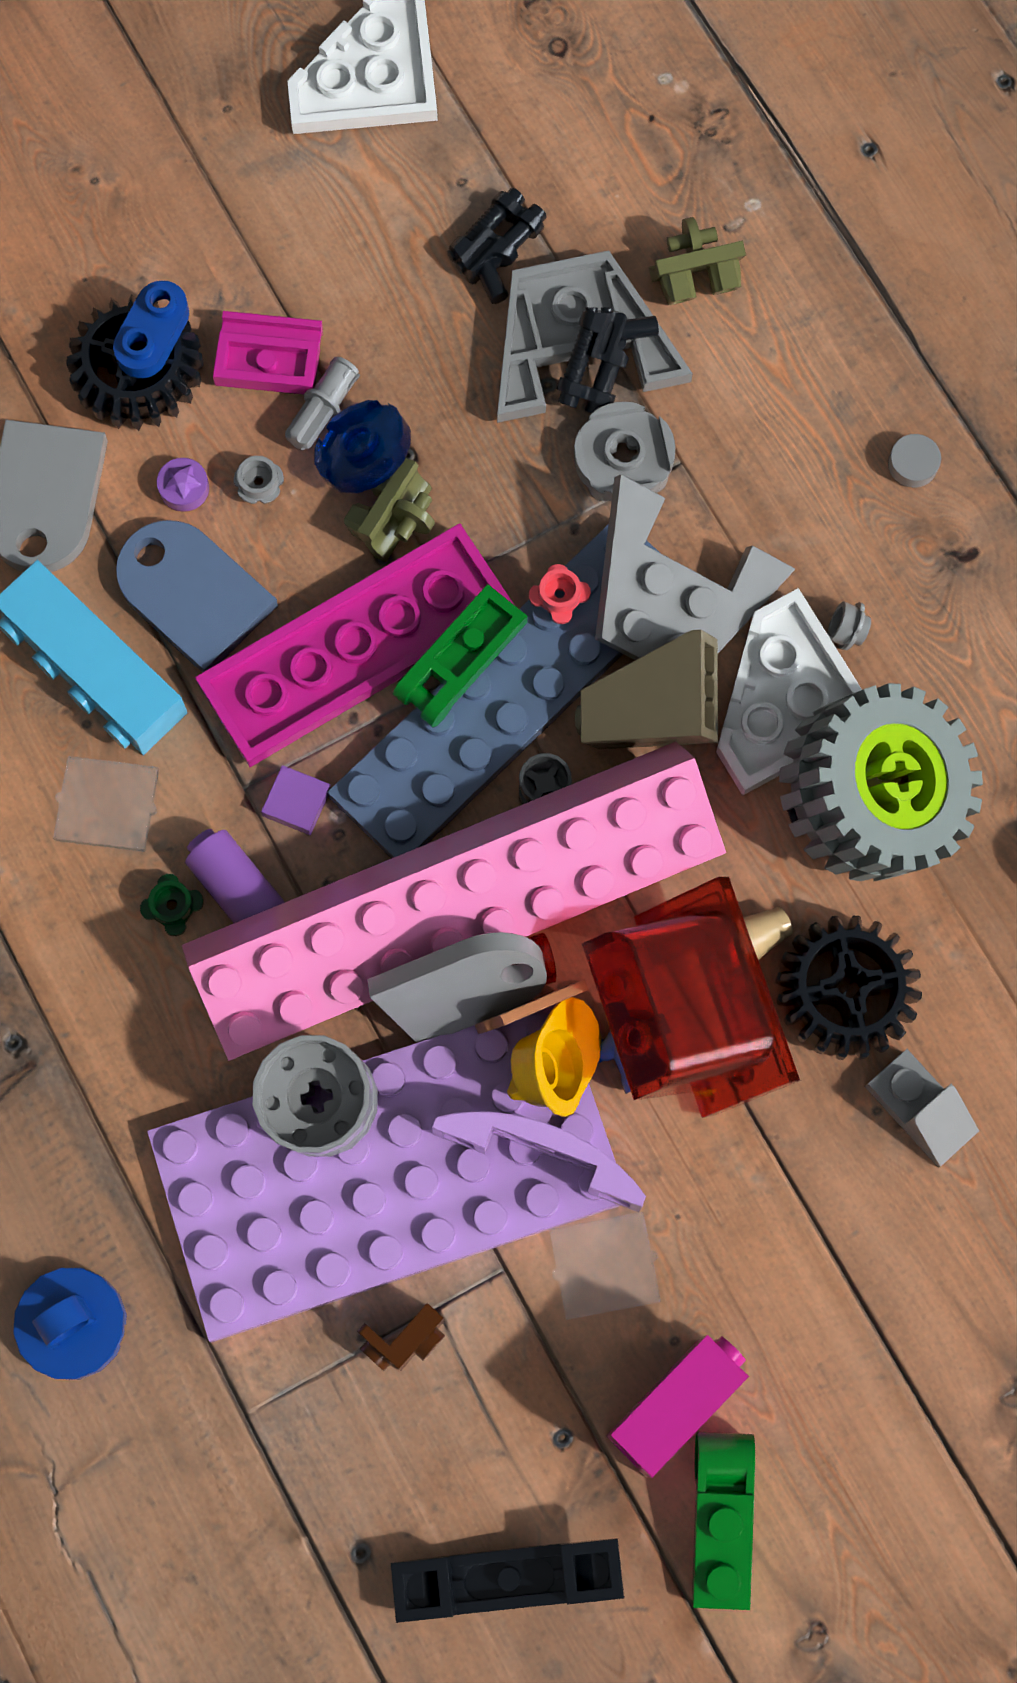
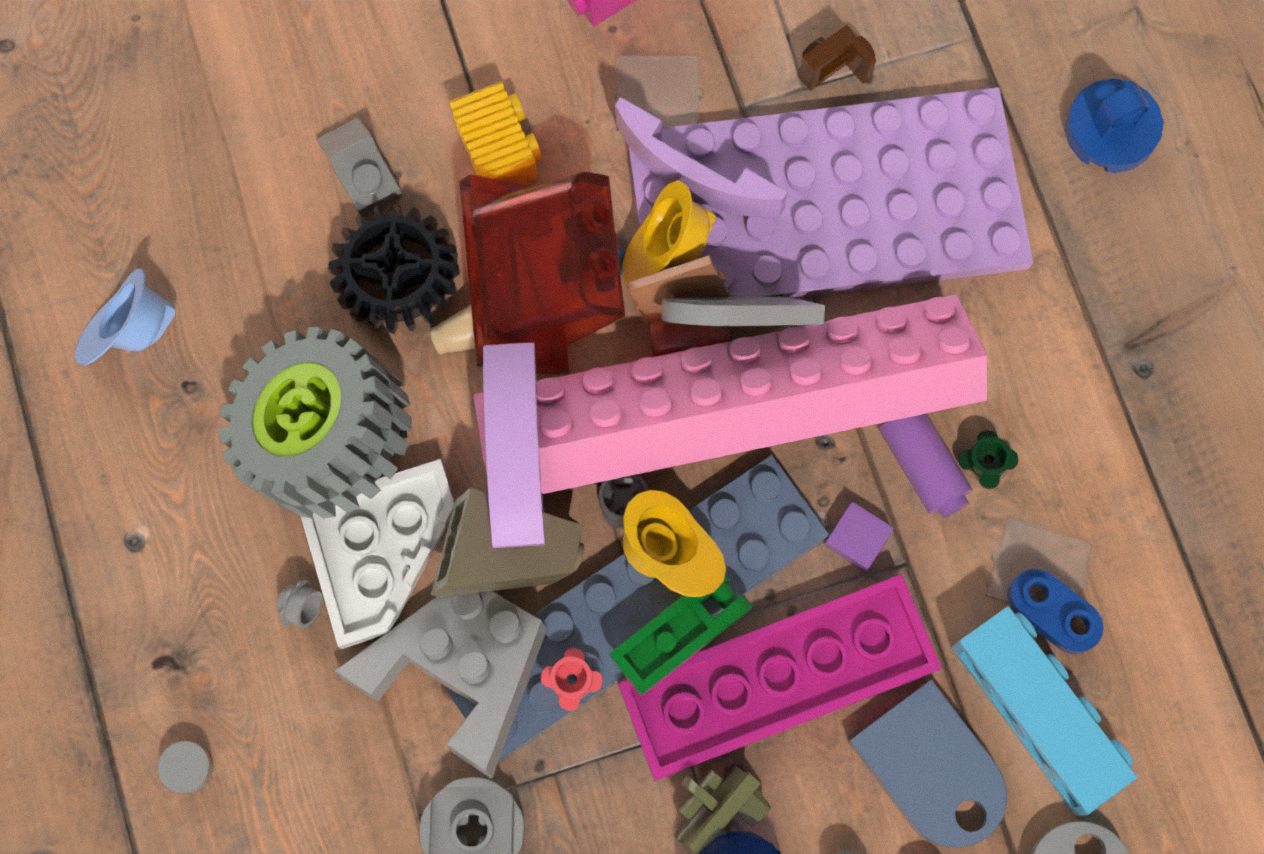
camera: 165 degrees left, 0 degrees up
(84, 756) = (1054, 614): none -> blue plate
(290, 1077) = (888, 211): light grey wheel -> none
(483, 724) = (671, 545): none -> yellow piece
(670, 786) = (512, 445): none -> lavender slope
(776, 1161) = (494, 136): none -> yellow brick

